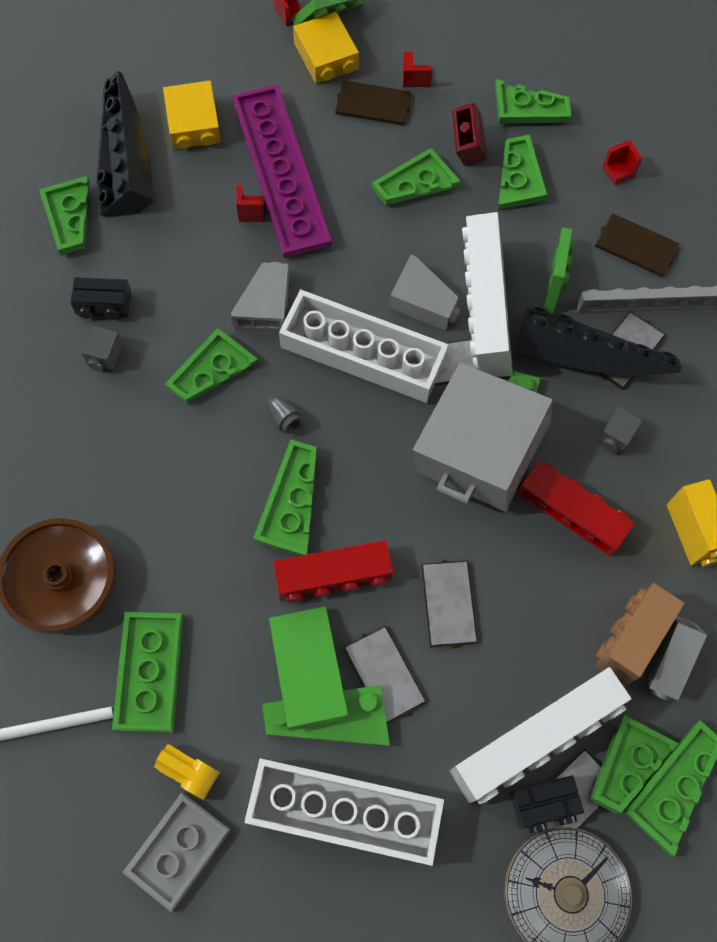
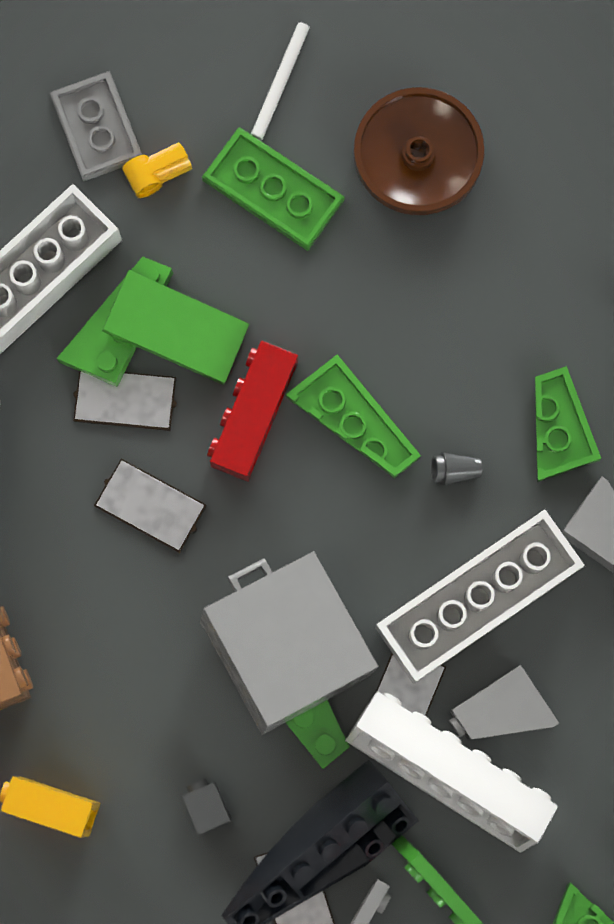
camera: 125 degrees right, 10 degrees up
(575, 508) = (156, 696): red brick -> none

